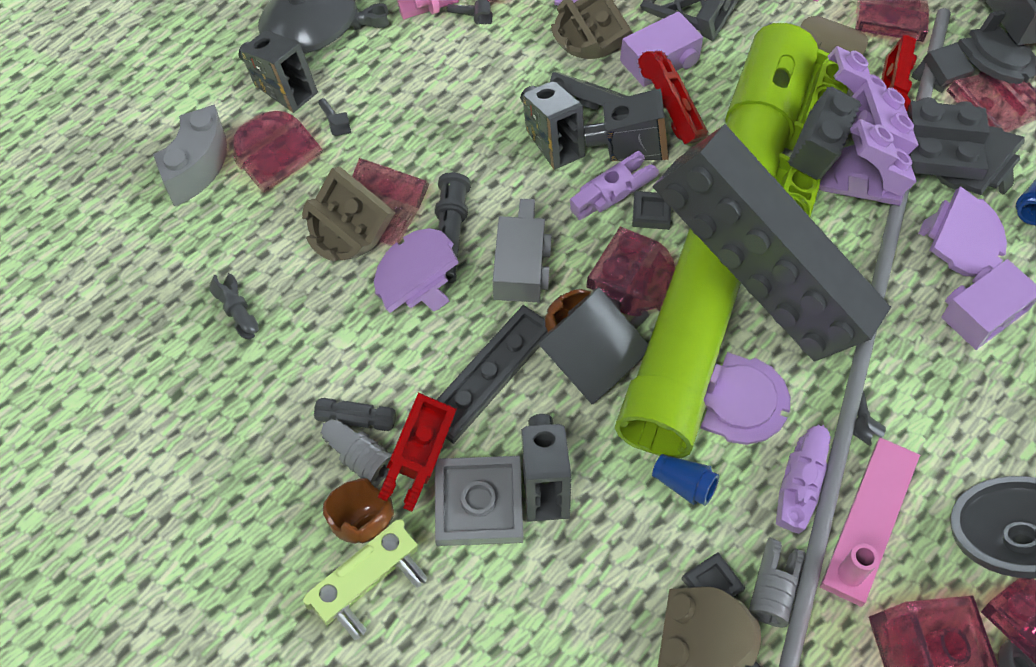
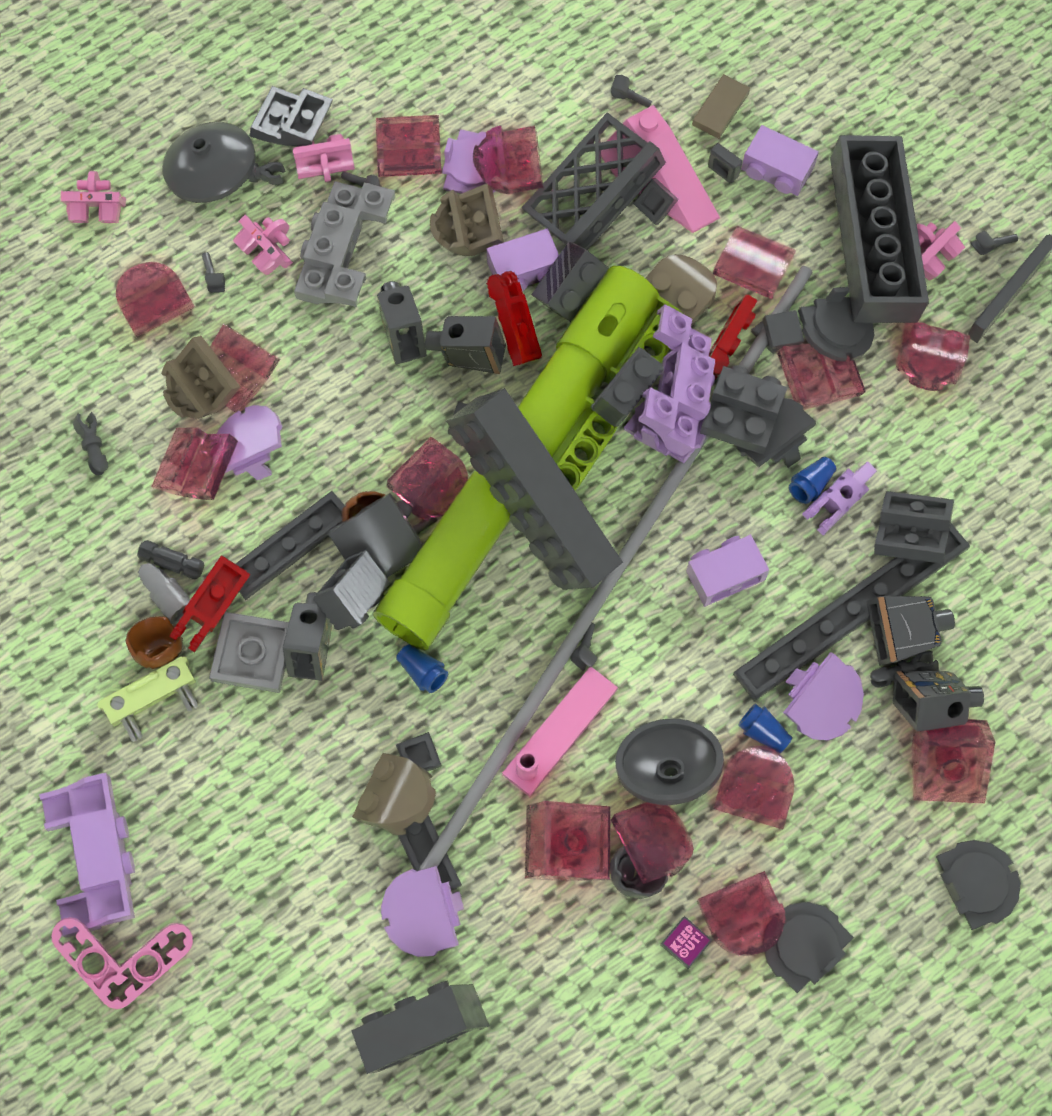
camera: 10 degrees right, 10 degrees up
(188, 64) = (79, 202): none -> bright pink hips
(193, 156) = (81, 293): light grey brick -> none
(279, 69) = (160, 208): dark grey torso -> none
(360, 304) = (195, 463): none -> clear pink slope
(394, 85) = (253, 235): none -> bright pink hips
(452, 210) = (291, 392): dark grey pin -> none
(456, 54) = (333, 241): none -> light grey bracket
(520, 255) = (340, 445): light grey hinge -> none
(587, 401) = (352, 591): none -> brick
(590, 94) = (447, 295): dark grey hinge -> none
(612, 186) = (424, 397): lavender hinge -> none
(719, 52) = (570, 281): none -> dark grey brick
(745, 401) = (493, 611): lavender piece -> none
(774, 588) = (462, 770): light grey hinge -> none
(803, 480) = (514, 689): lavender hinge -> none
(966, 234) = (733, 502): lavender piece -> none

